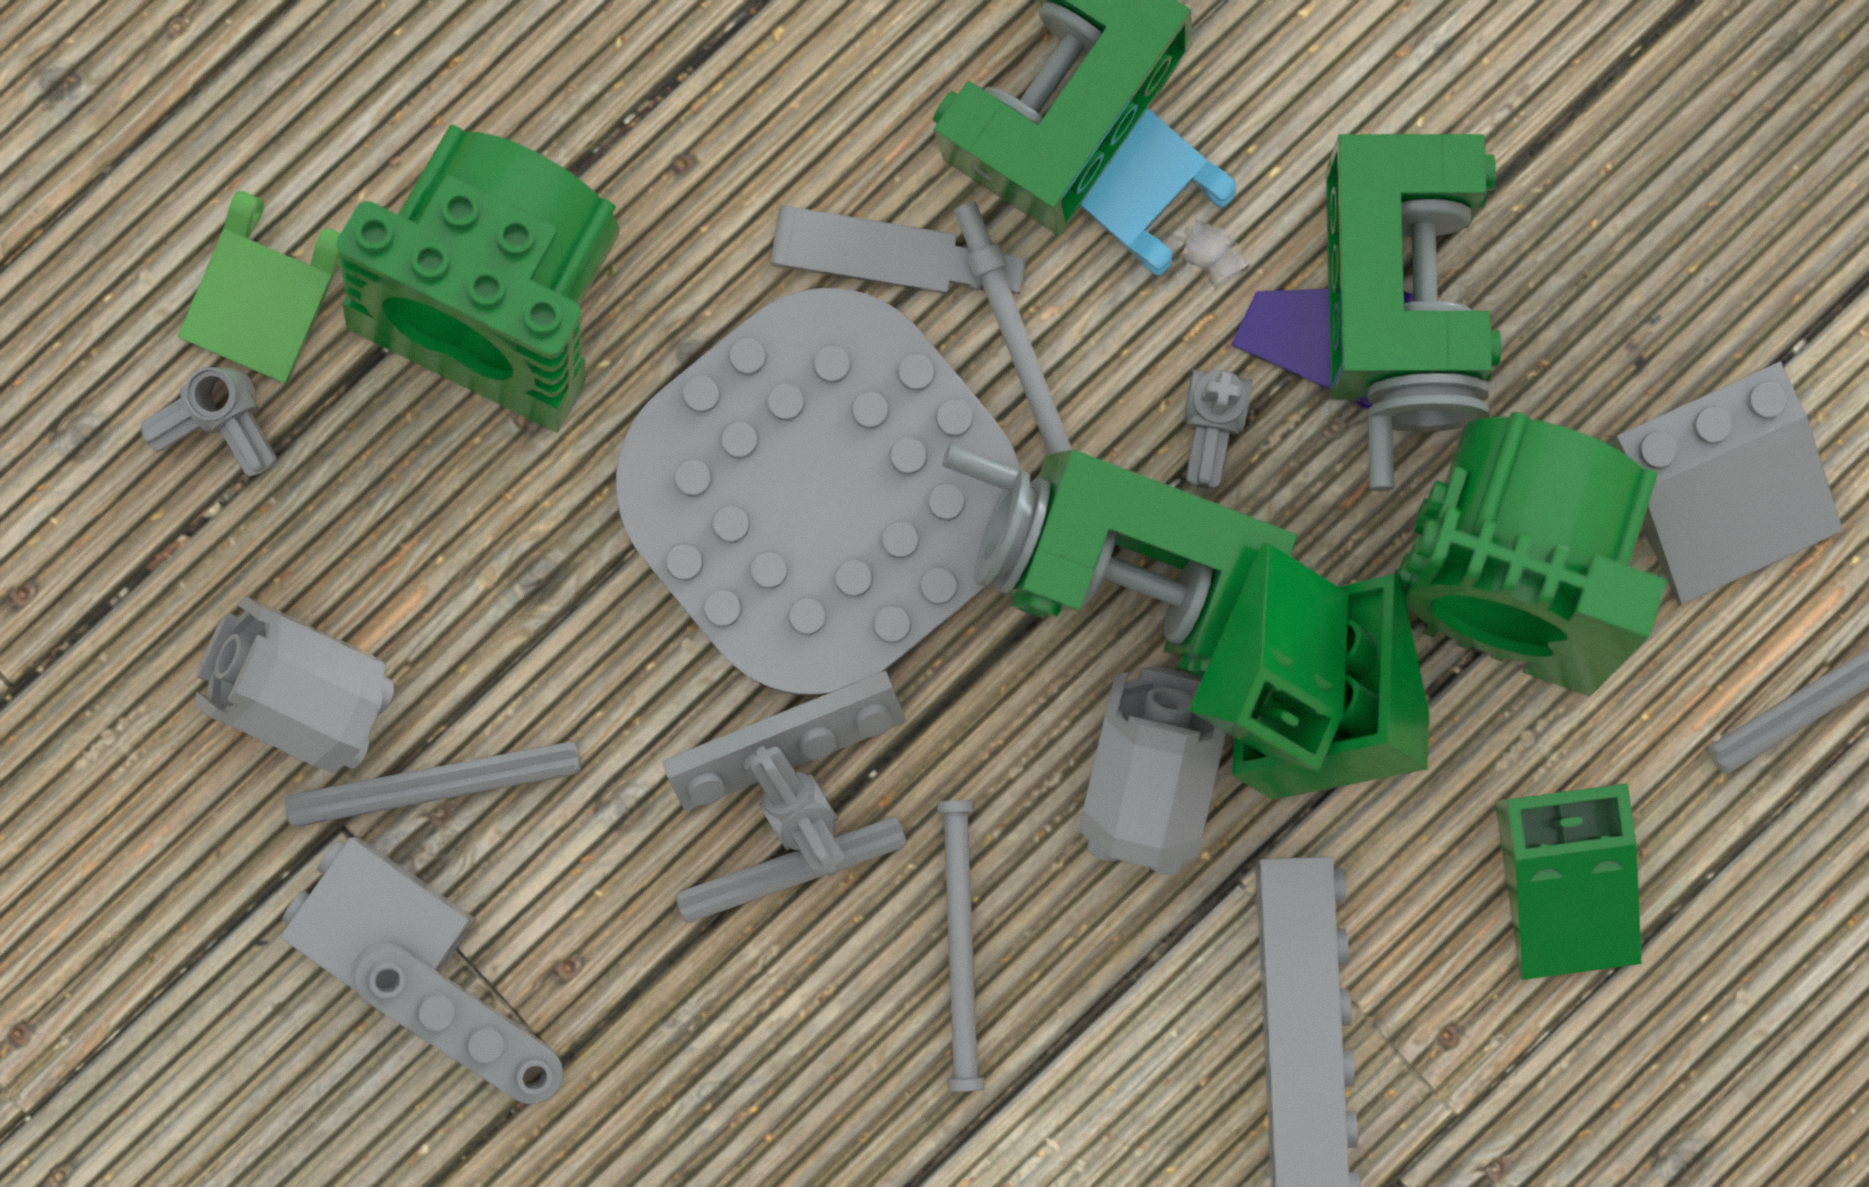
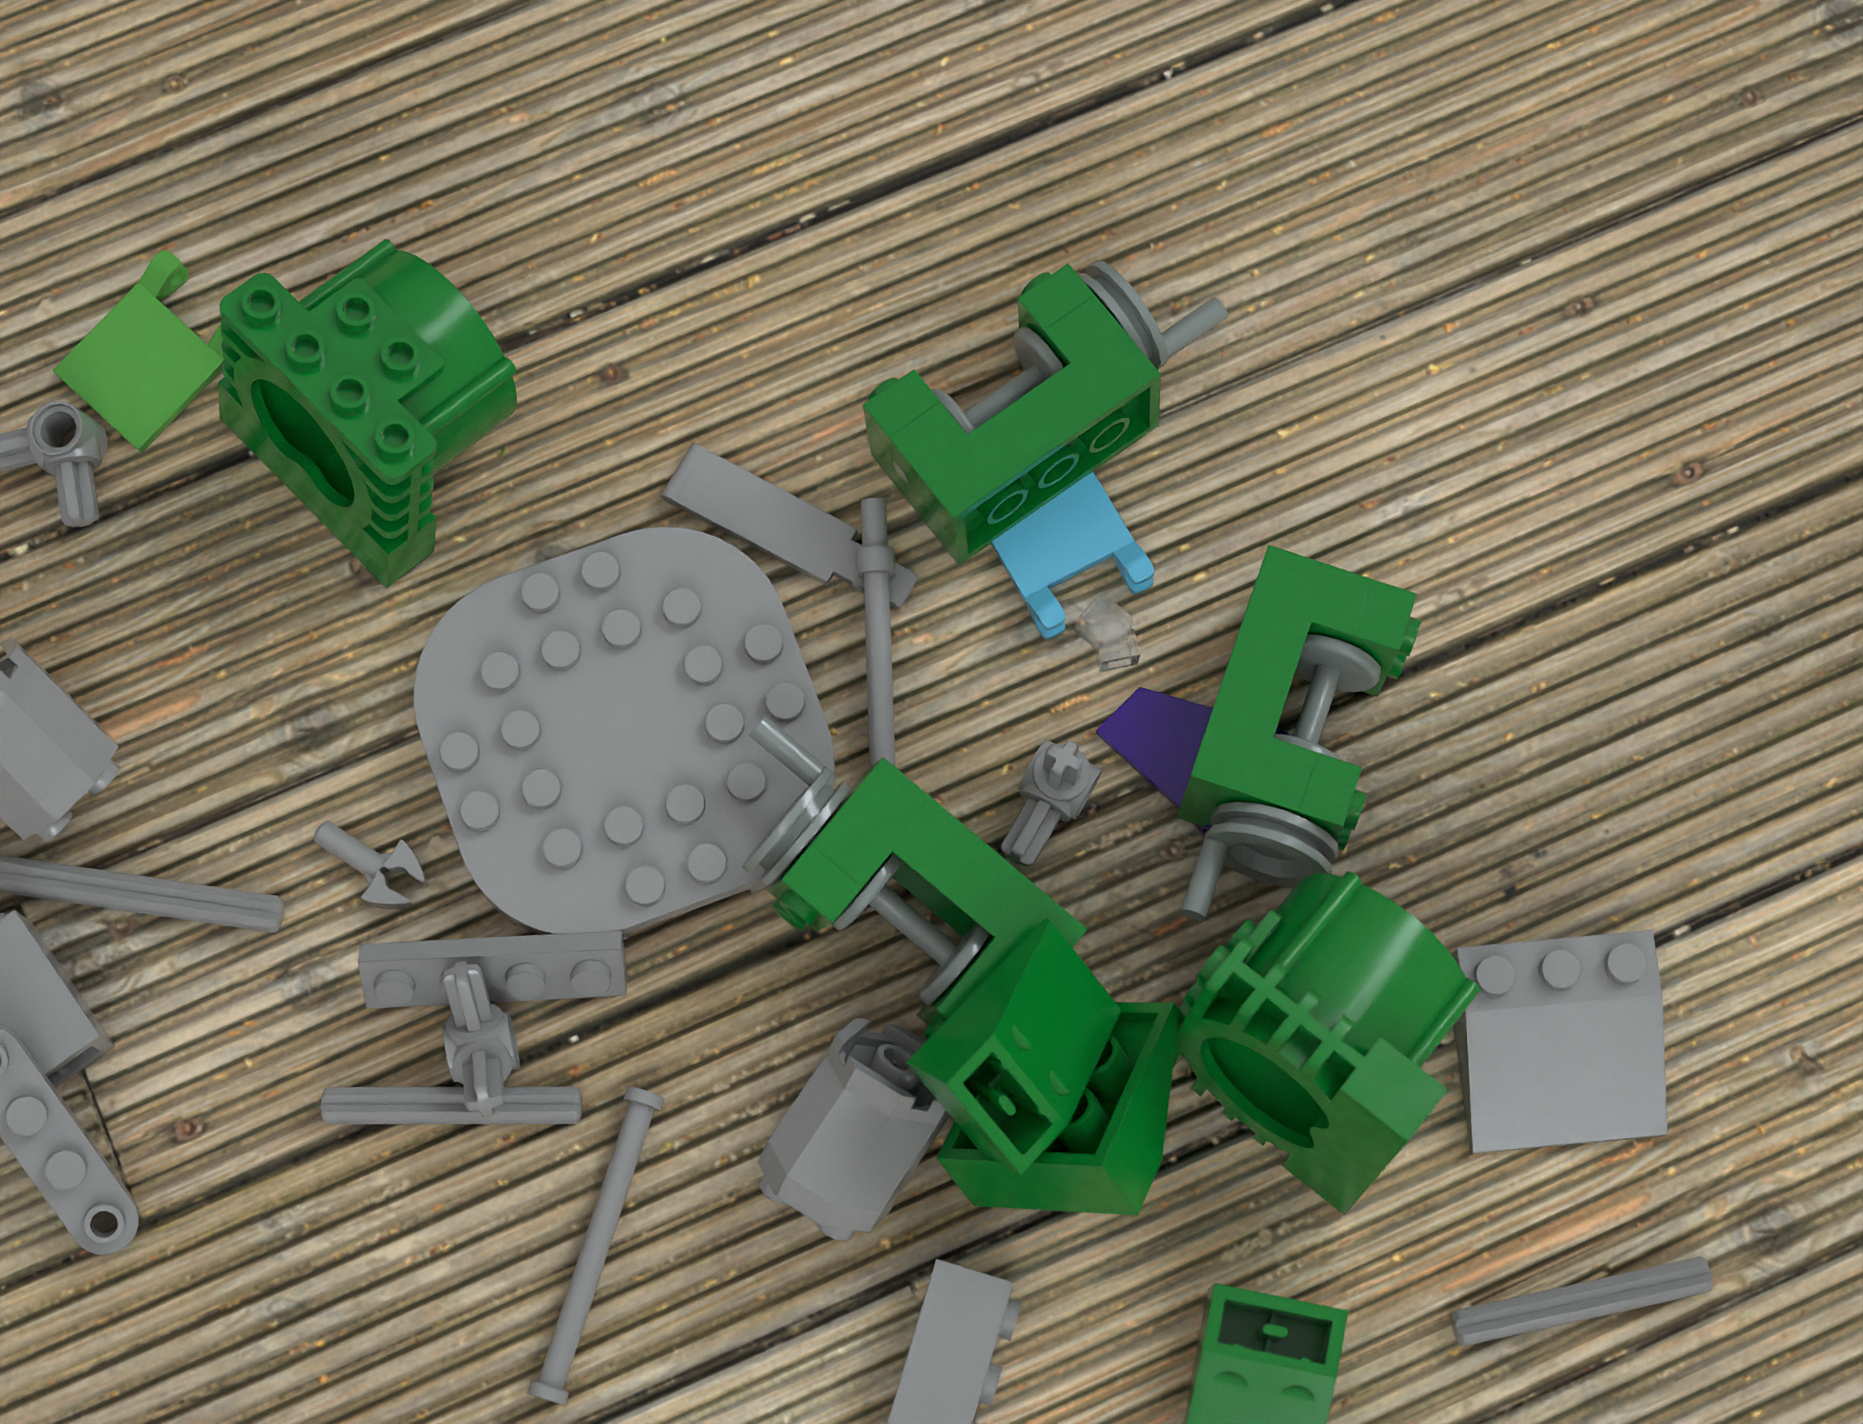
camera: 15 degrees right, 10 degrees down
(639, 684) = (372, 865): none -> light grey bar

